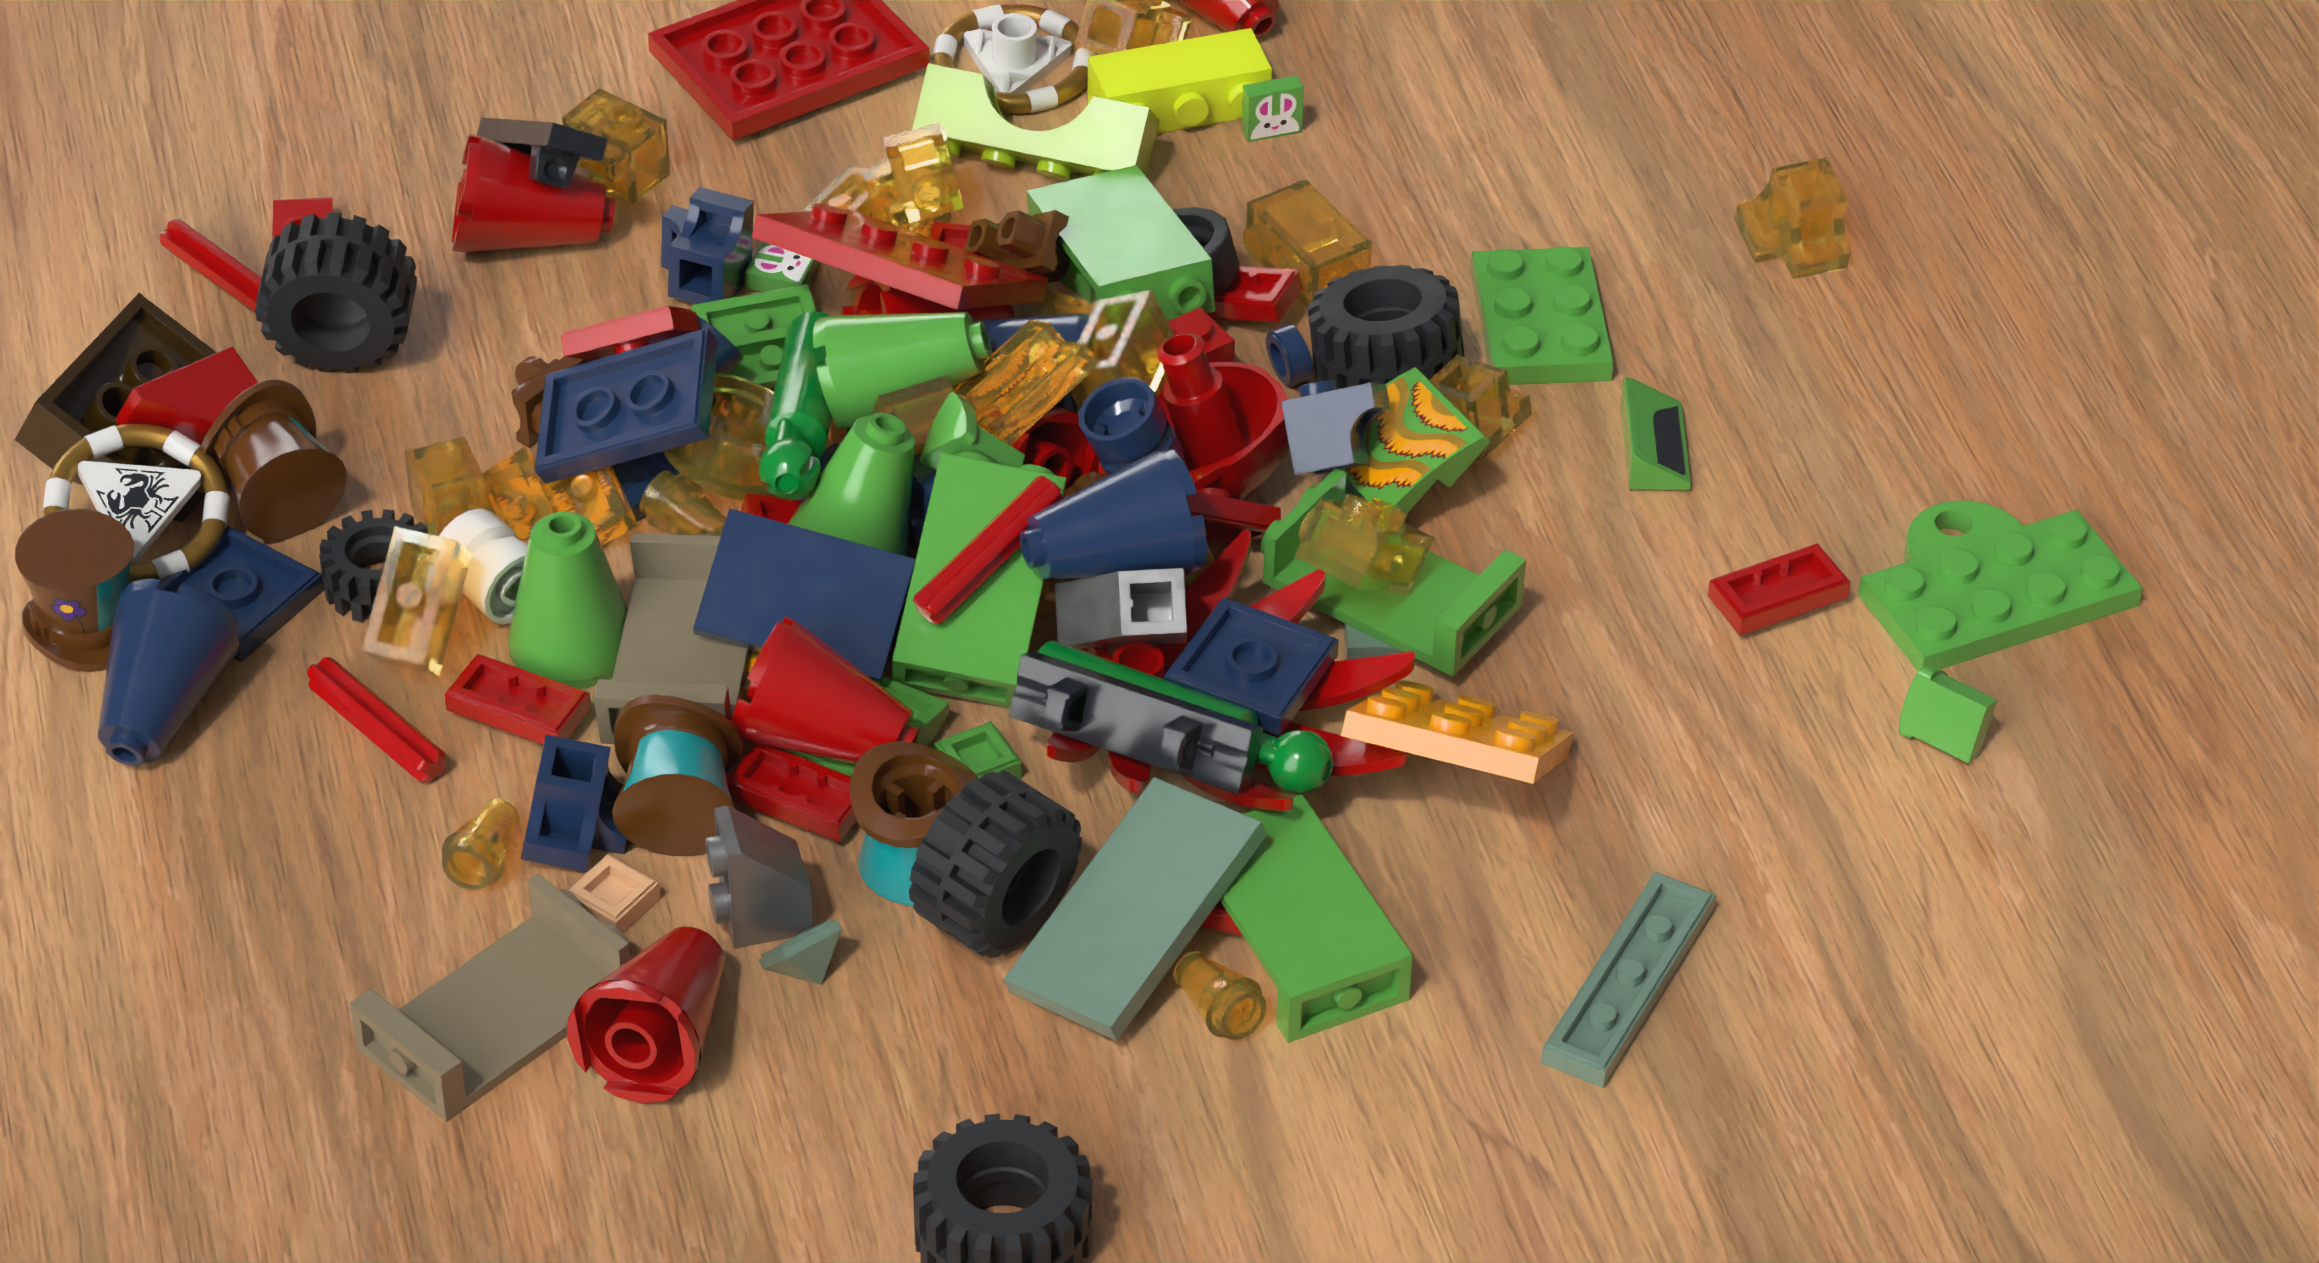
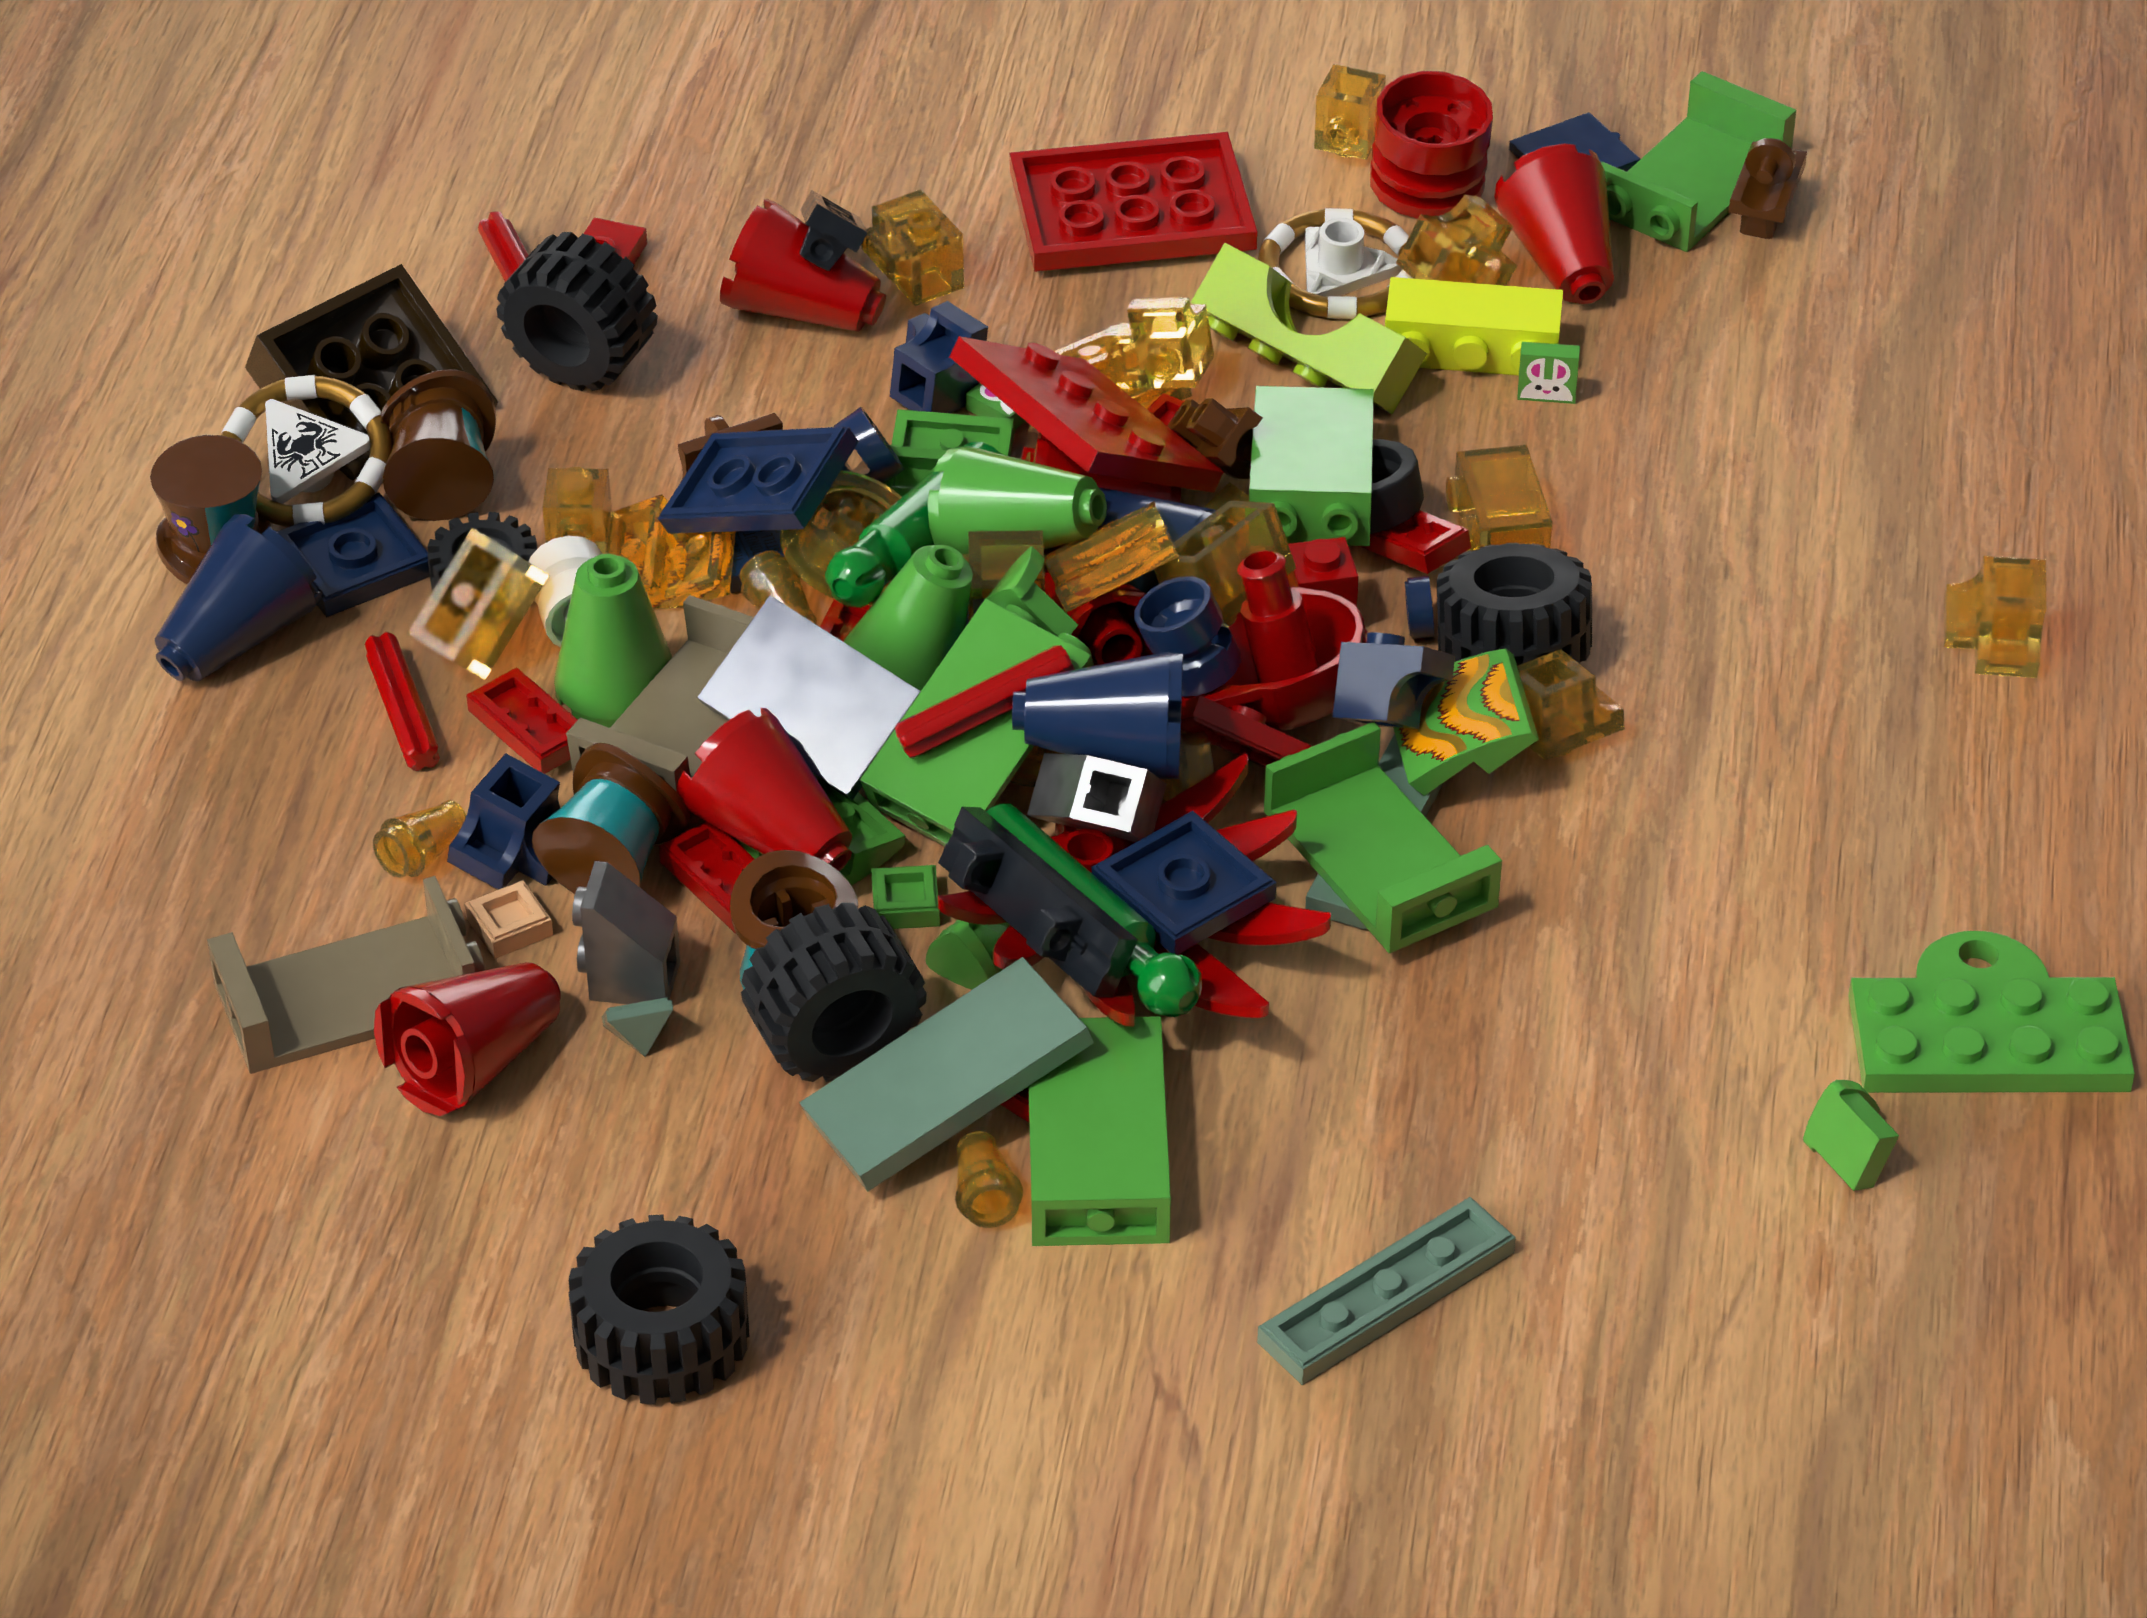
camera: 25 degrees right, 0 degrees up
(189, 396) = (388, 364): red slope -> none
(628, 332) = (793, 413): plate -> none
(1080, 788) = (965, 953): none -> bright green tile
(1364, 544) = (1348, 801): clear yellow brick -> none
(1459, 732) = (1343, 1005): light orange plate -> none
(1542, 315) = (1694, 639): bright green plate -> none
(1653, 438) = (1730, 785): bright green slope -> none
(1778, 589) = (1762, 965): red plate -> none

